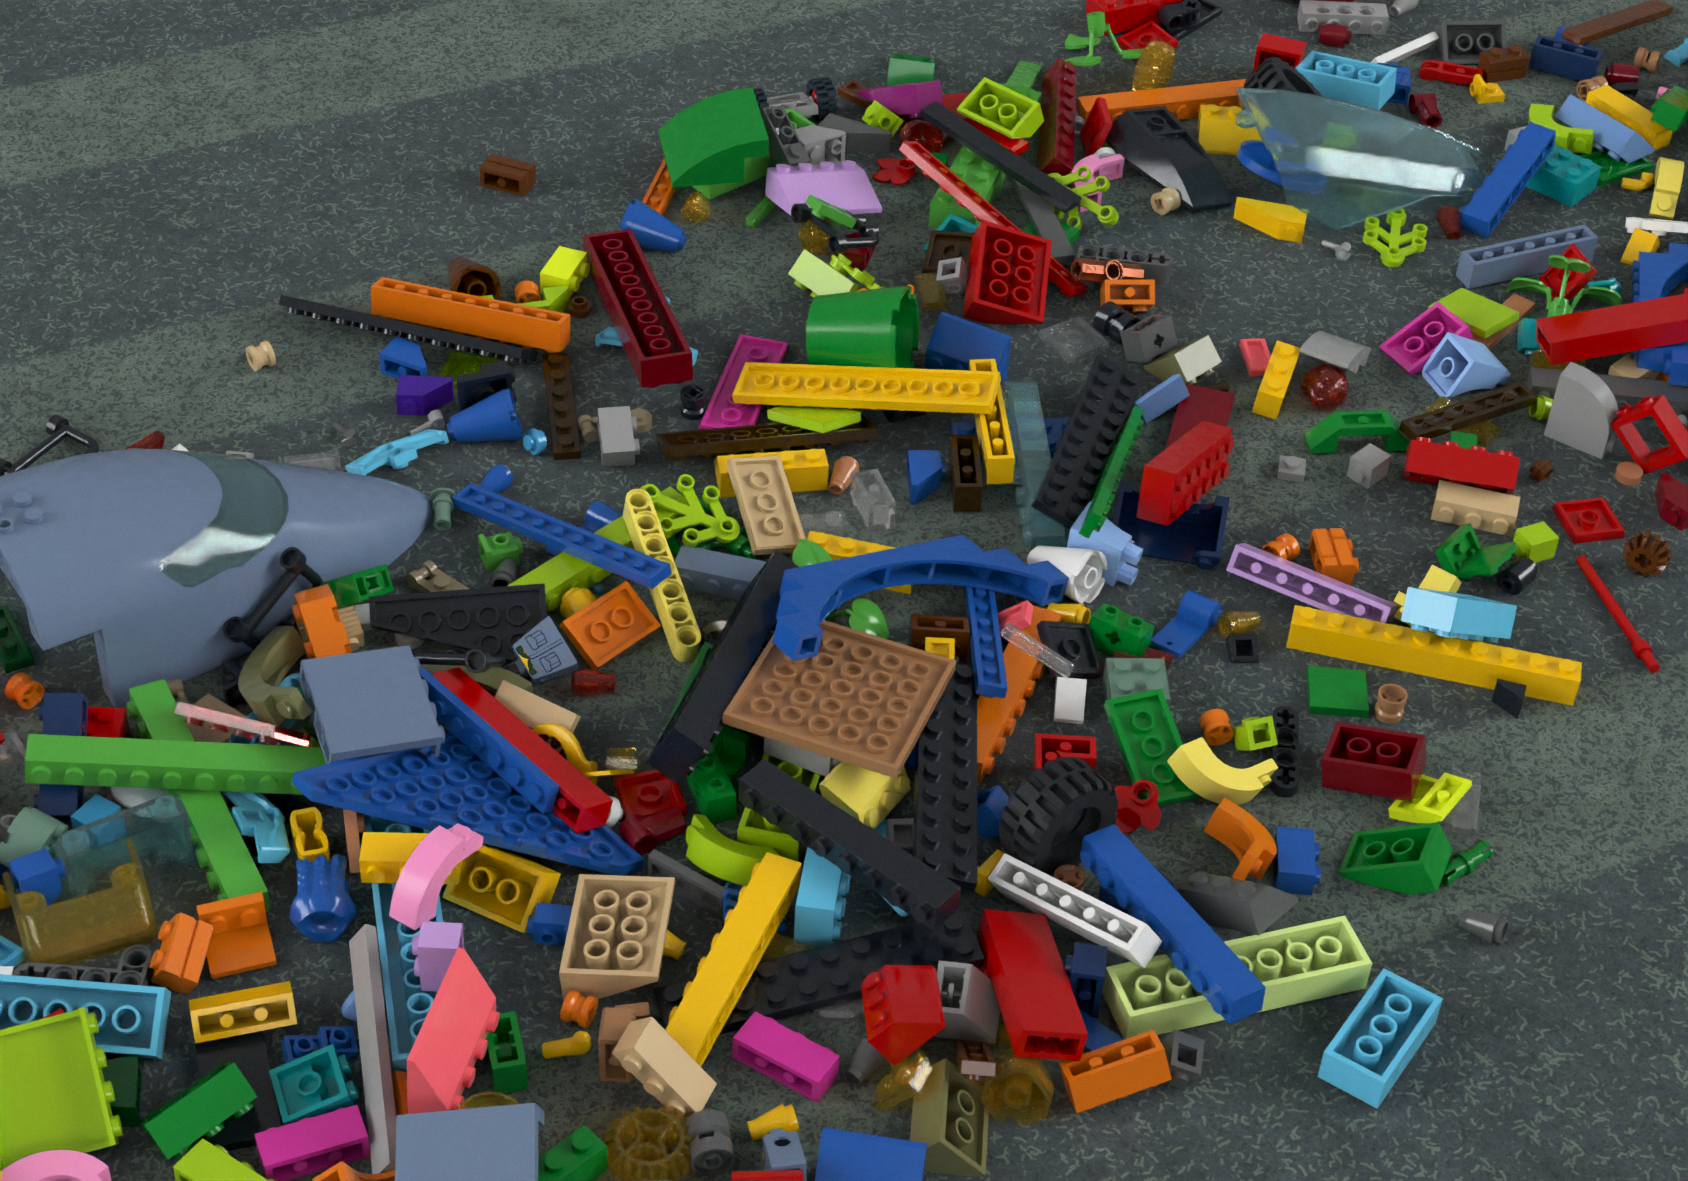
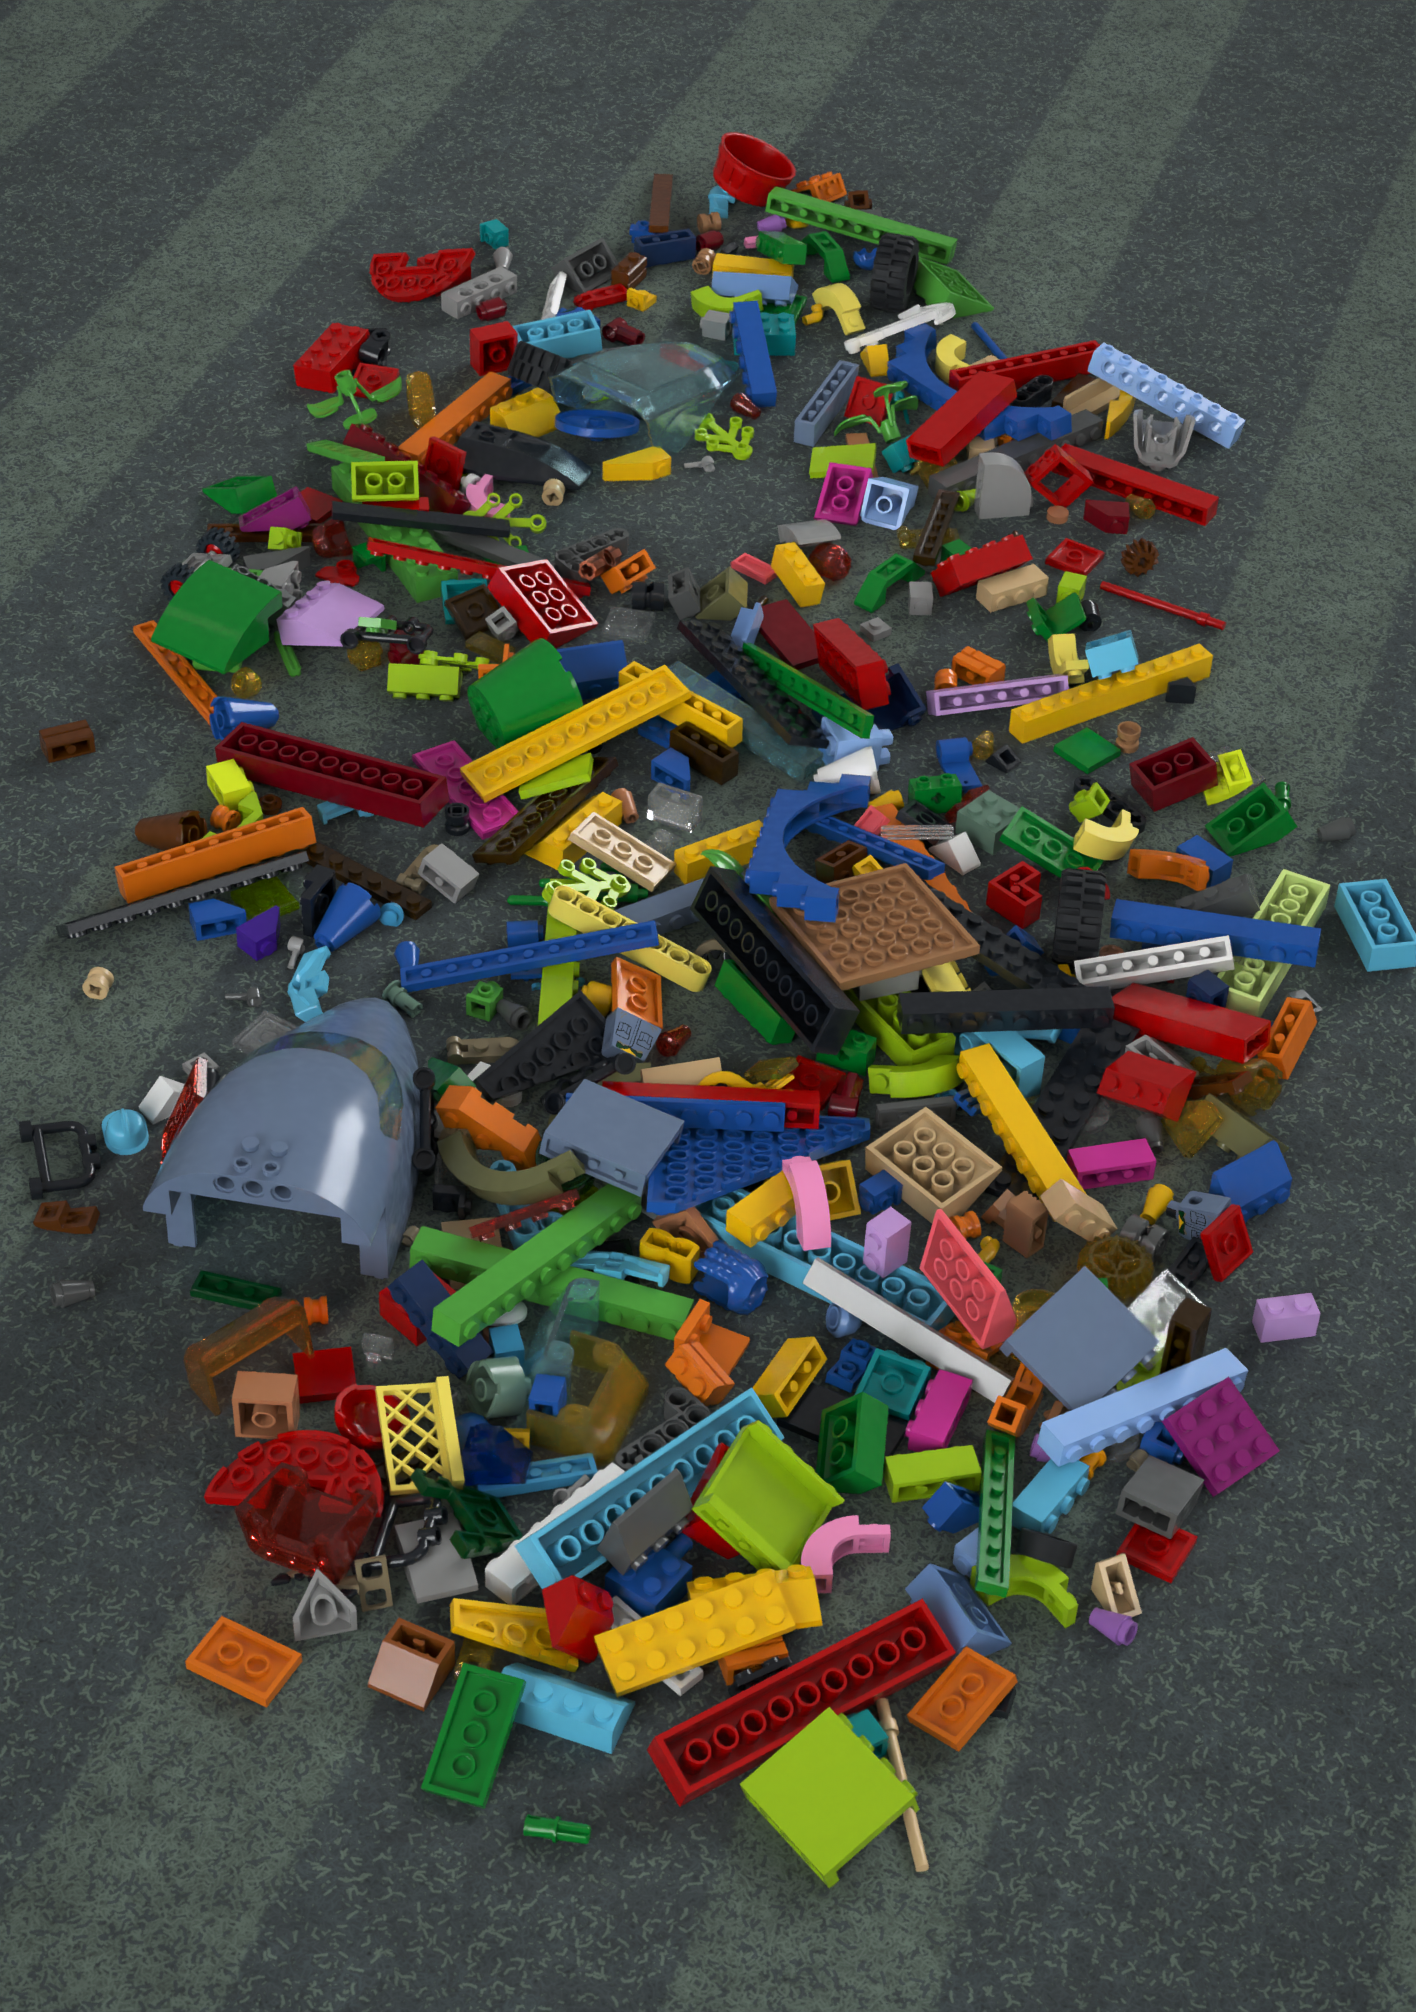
camera: 45 degrees left, 0 degrees up
(1216, 727) = (1060, 814): orange wheel -> none

